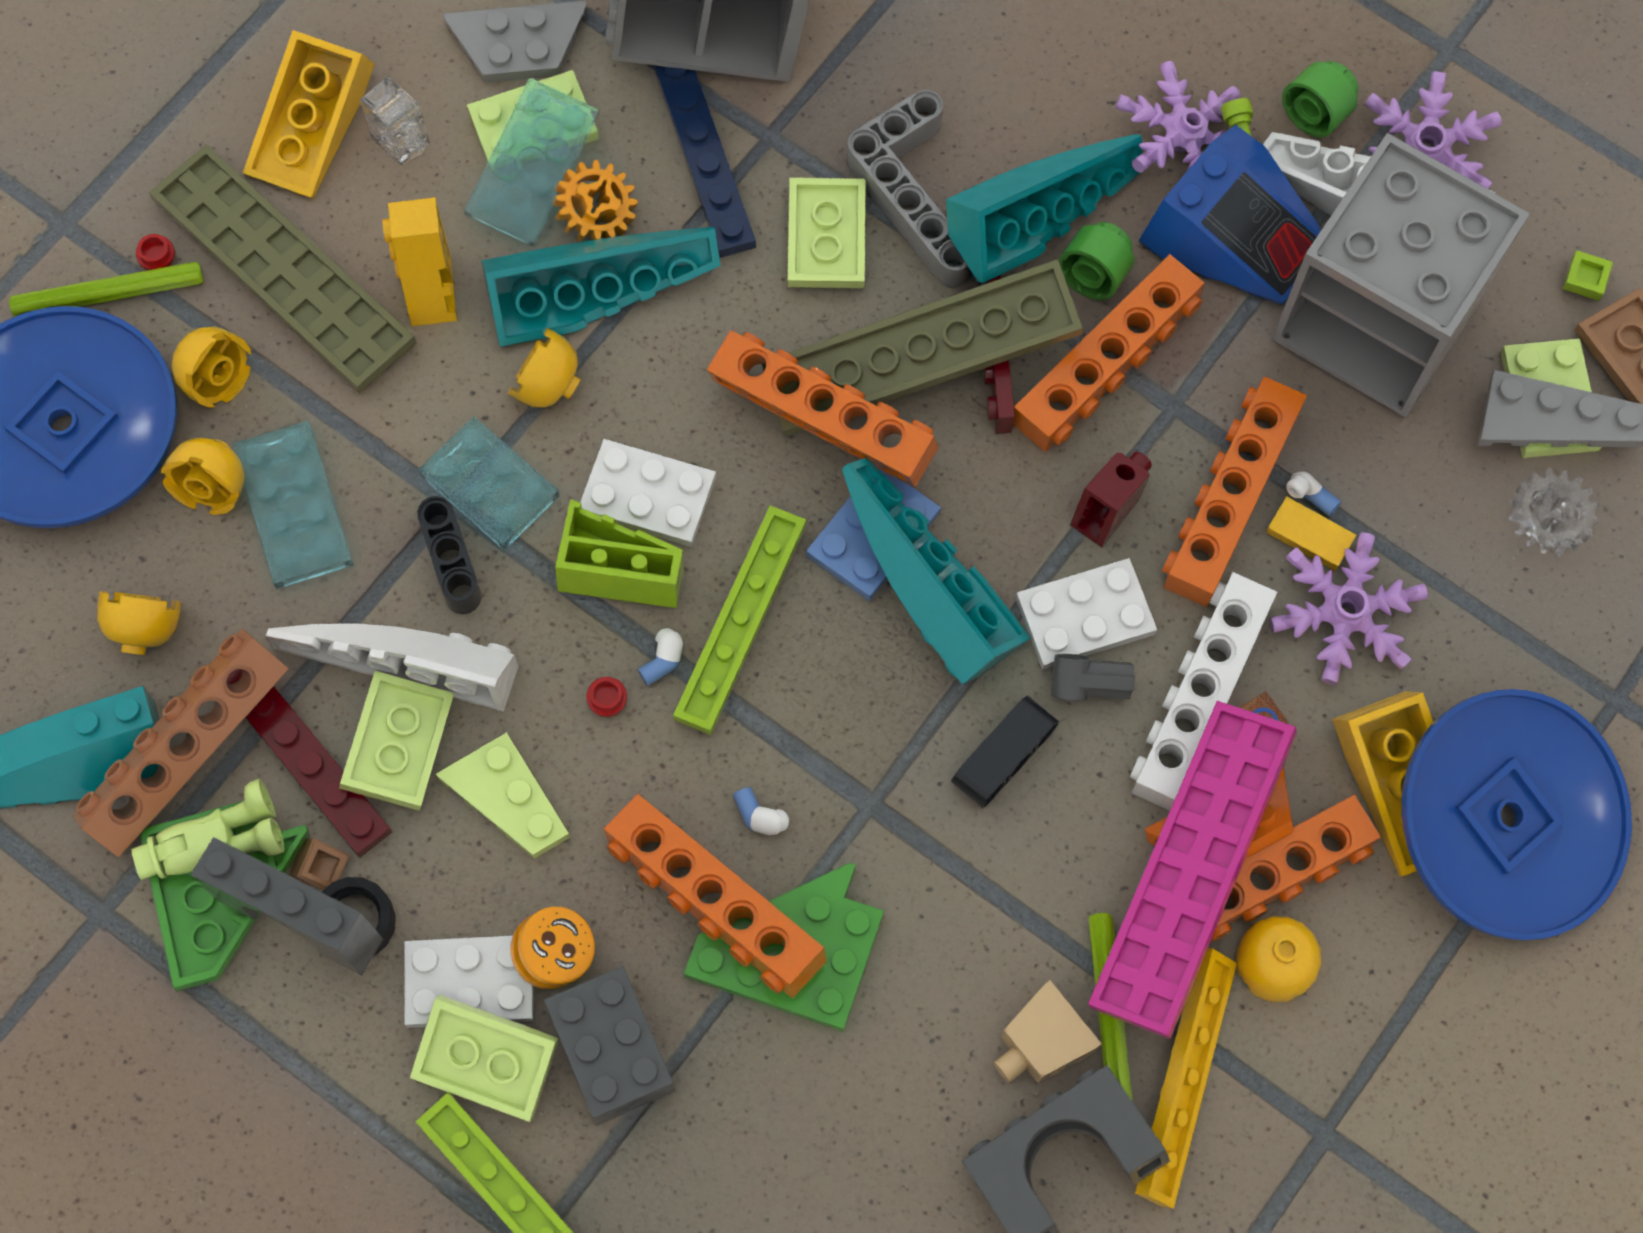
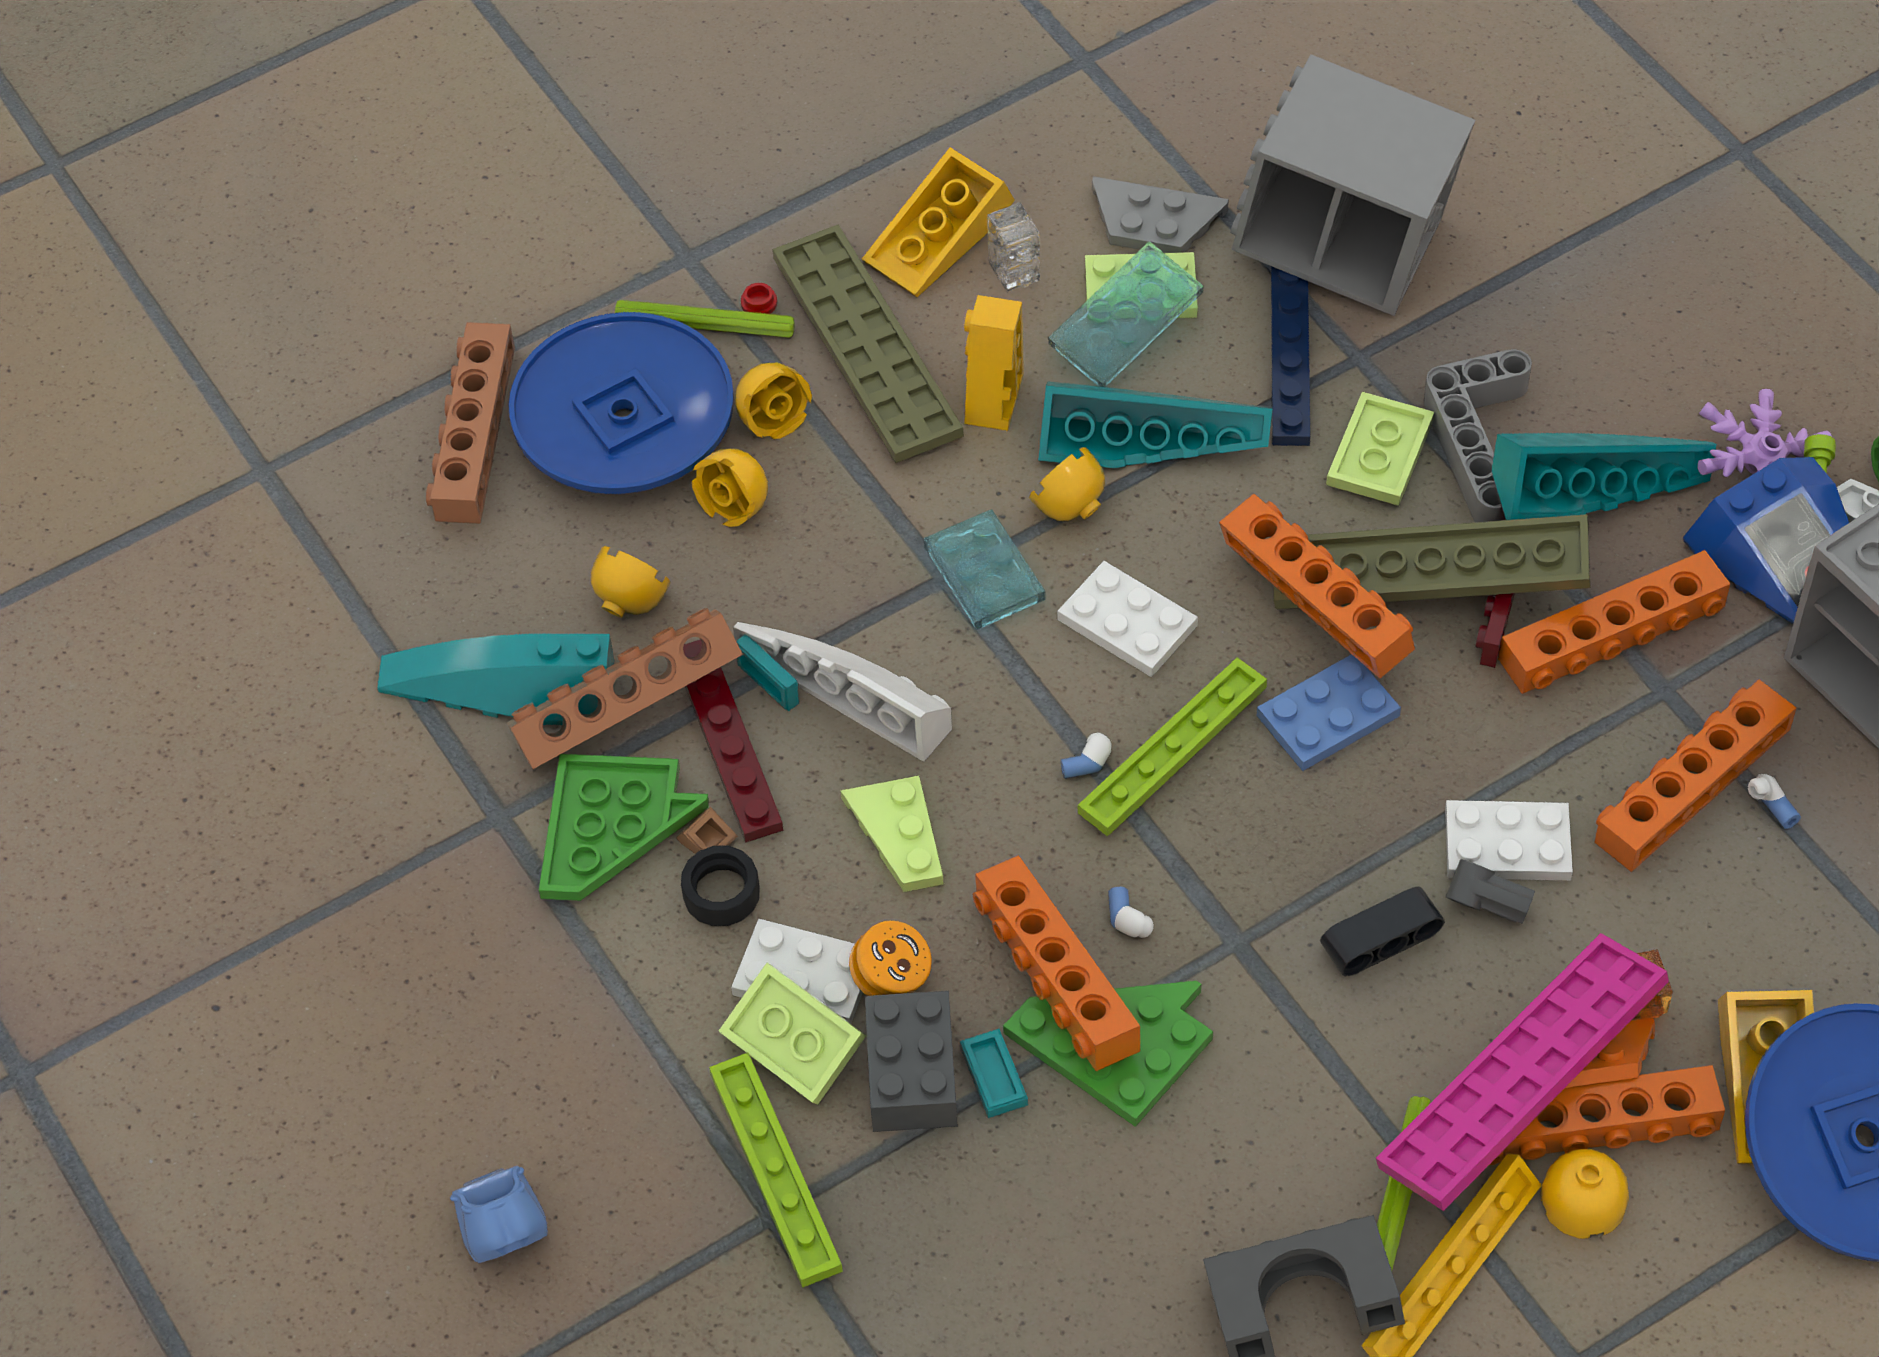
camera: 25 degrees right, 15 degrees down
(182, 844) = (620, 774): yellowish green piece -> none
(258, 888) = (642, 812): dark grey arch -> none
(293, 505) = (800, 537): clear light blue plate -> none
(316, 670) = (768, 673): none -> teal tile
(396, 740) = (816, 750): yellowish green plate -> none
(443, 538) = (924, 597): black beam -> none
(580, 196) = (1165, 347): light orange gear -> none
(606, 696) = (1022, 774): red plate -> none
(616, 562) = (1074, 662): lime wedge -> none
(691, 1025) = (993, 1073): none -> teal tile
(945, 600) = (1374, 788): teal wedge -> none
(1045, 1038) = (1325, 1185): tan torso -> none
(1097, 260) = (1631, 533): bright green piece -> none
(1116, 487) = (1568, 741): dark red torso -> none
(1248, 603) = (1661, 866): white brick -> none
(1310, 533) = (1759, 836): yellow tile -> none
(1351, 596) = (1771, 909): lavender piece -> none

